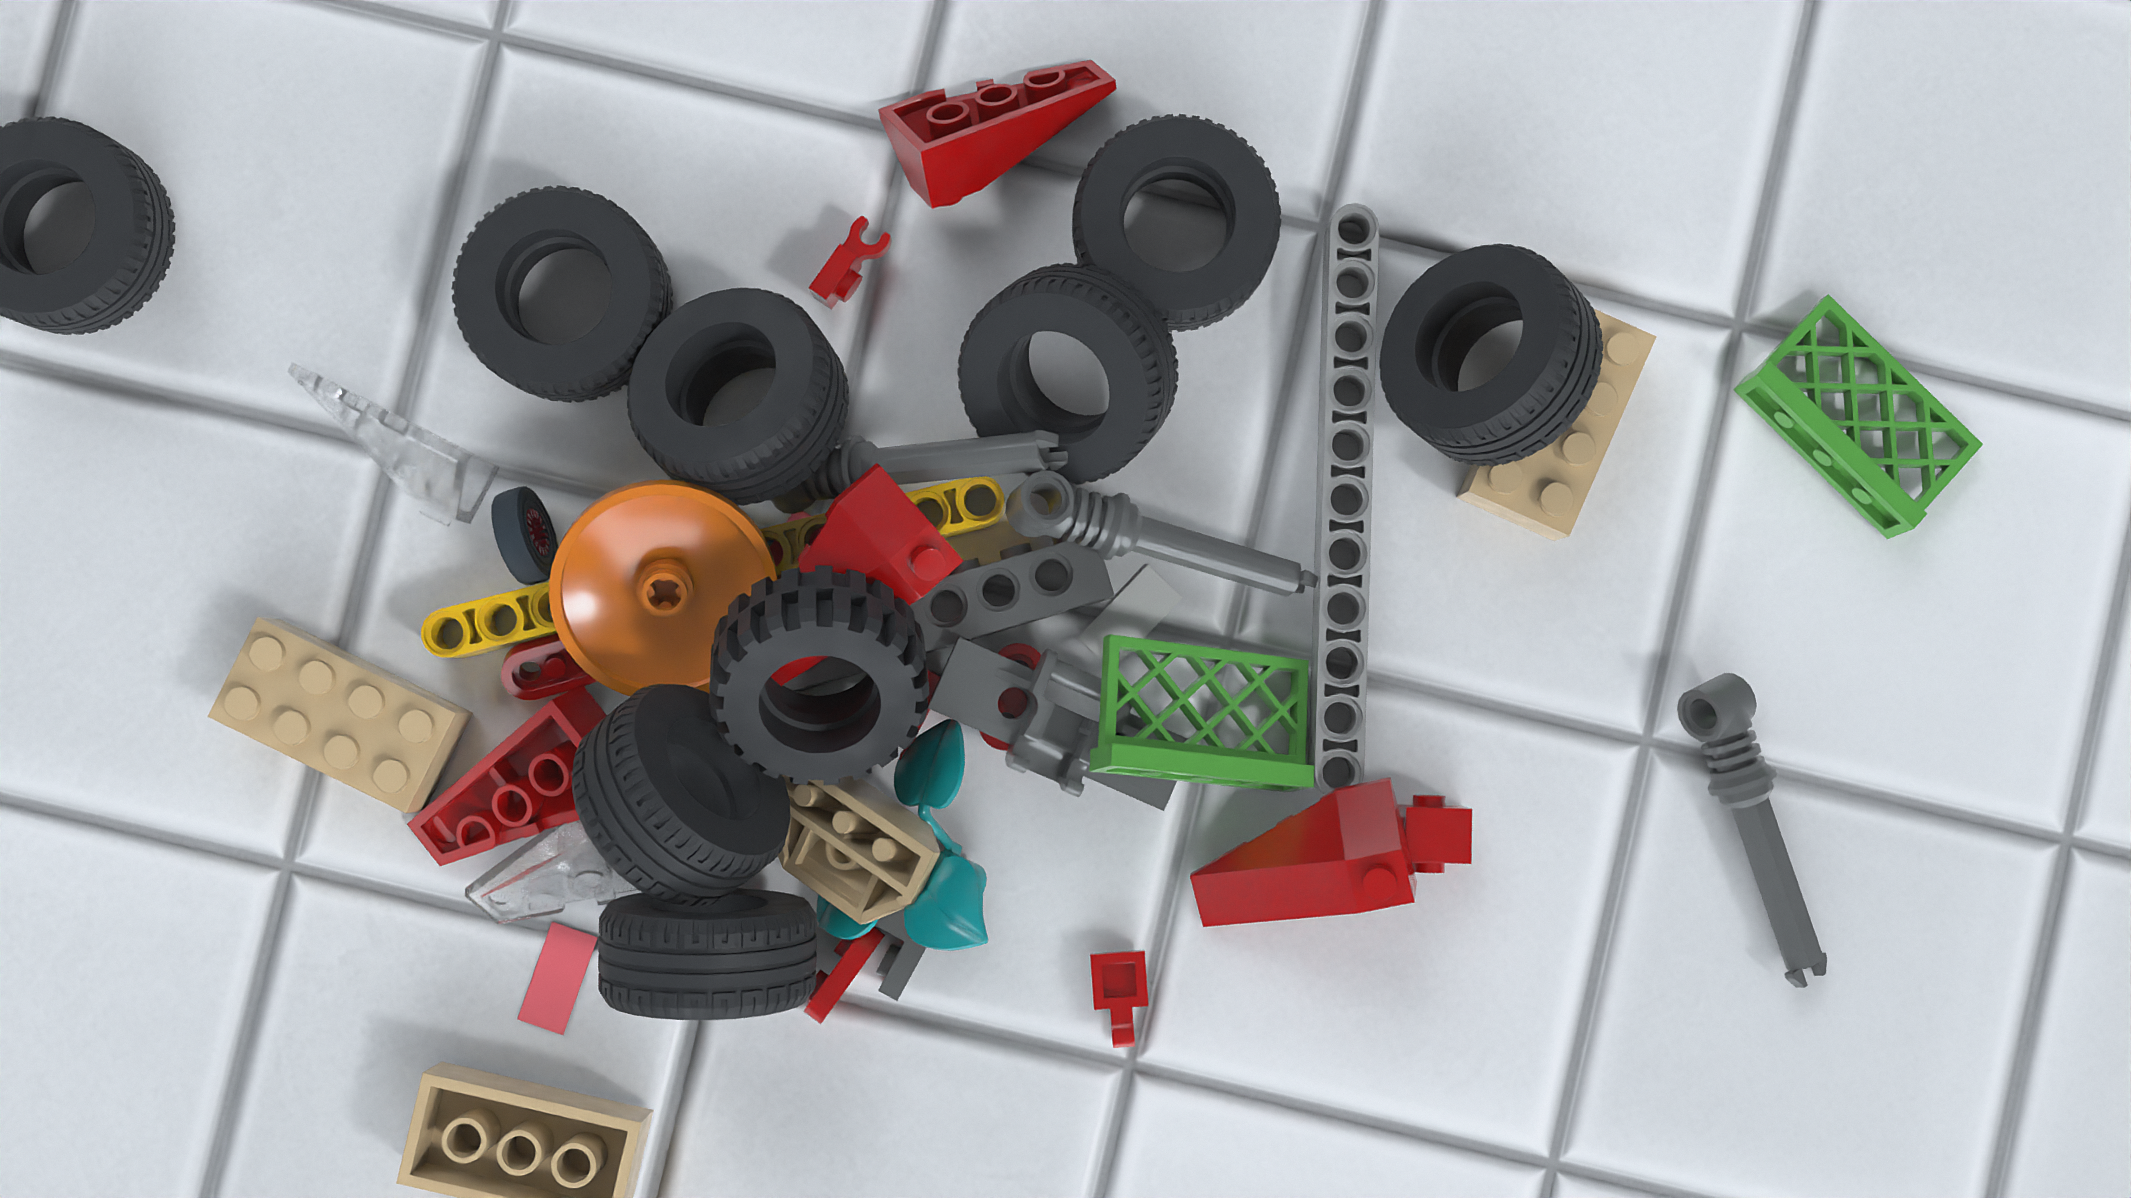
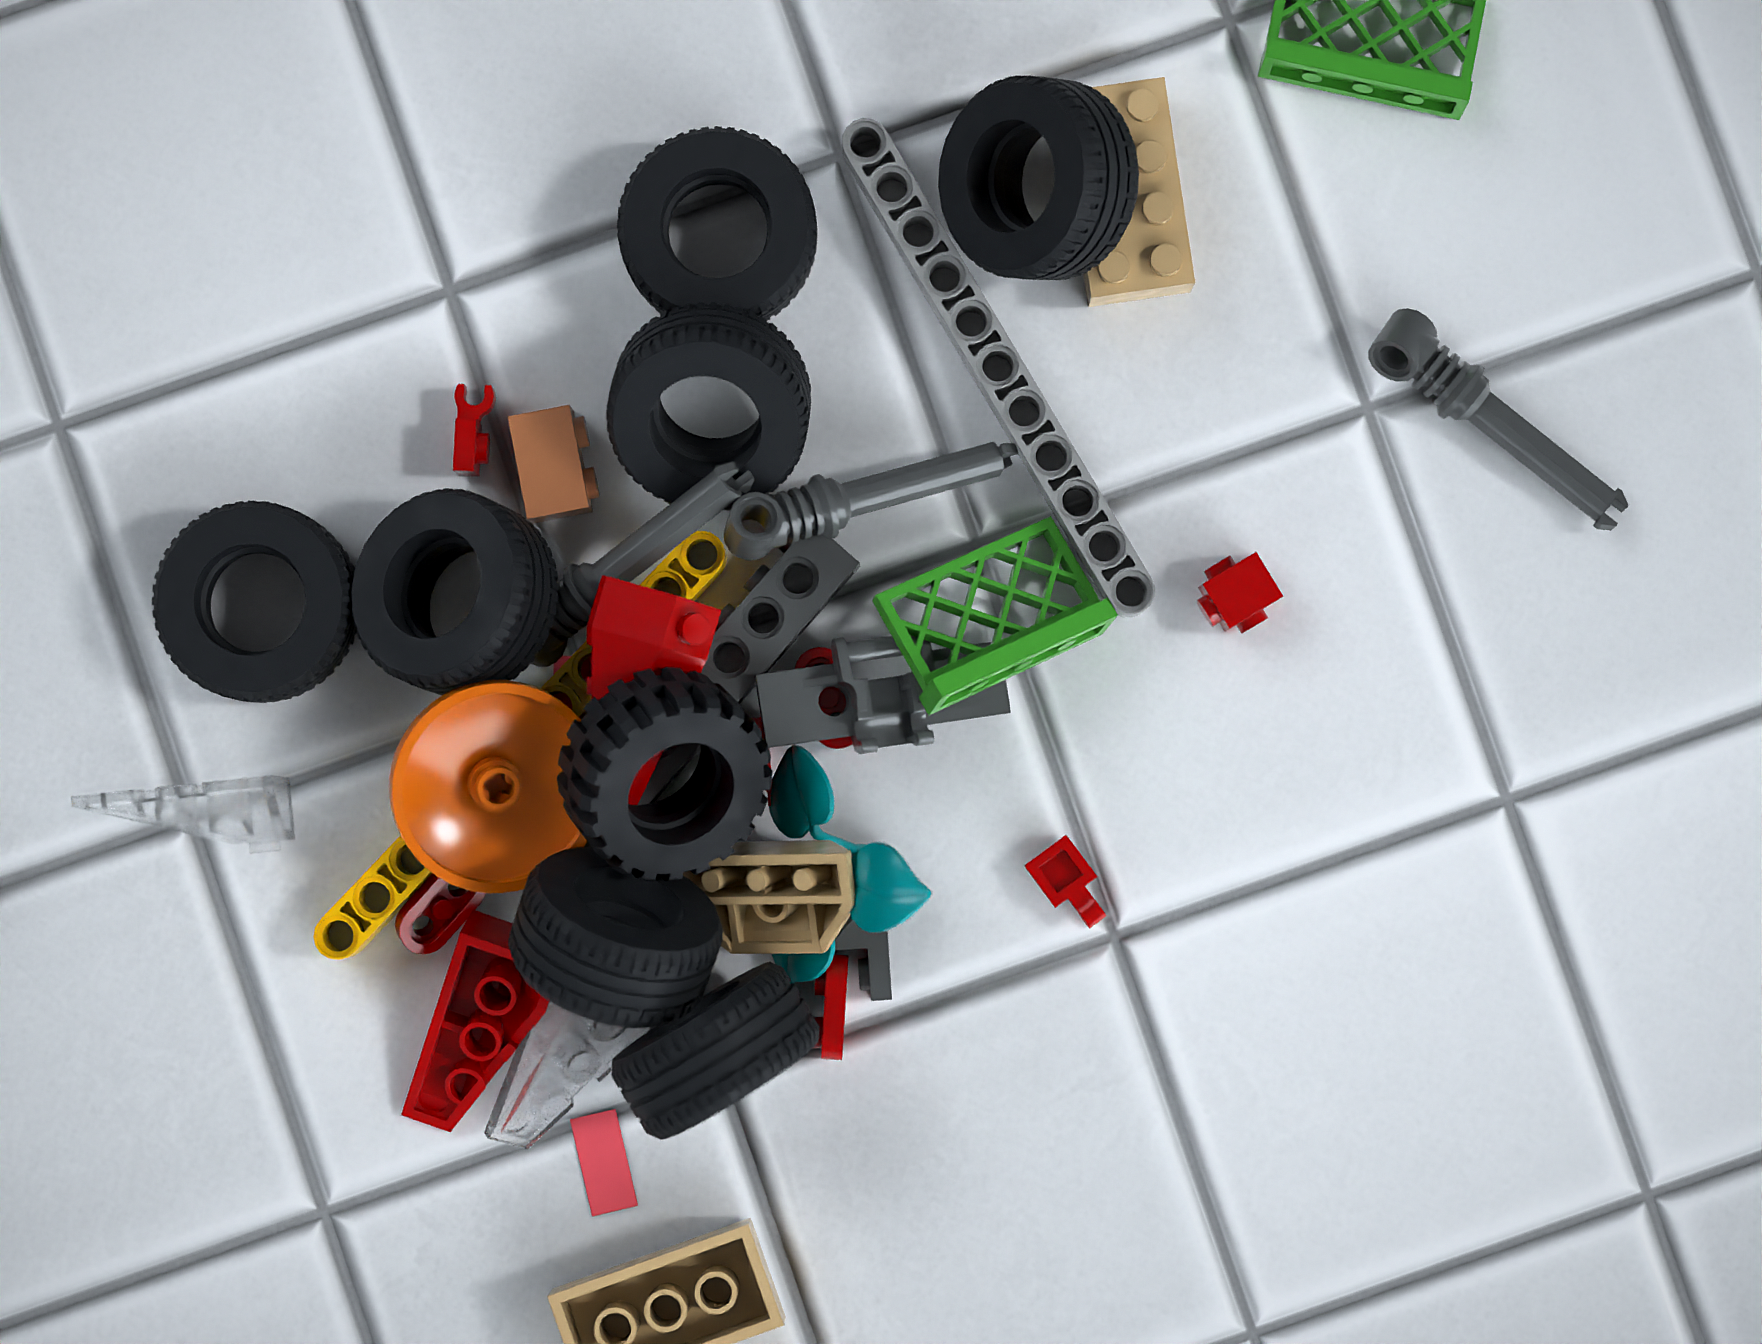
camera: 25 degrees left, 0 degrees up
(340, 714) = (292, 1058): tan brick -> none
(524, 534) = (351, 817): black bush -> none
(900, 337) = (552, 463): none -> nougat brick
(975, 137) = (507, 263): red wedge -> none
(1132, 612) = (883, 567): white sticker -> none
(1322, 862) = (1160, 671): red wedge -> none

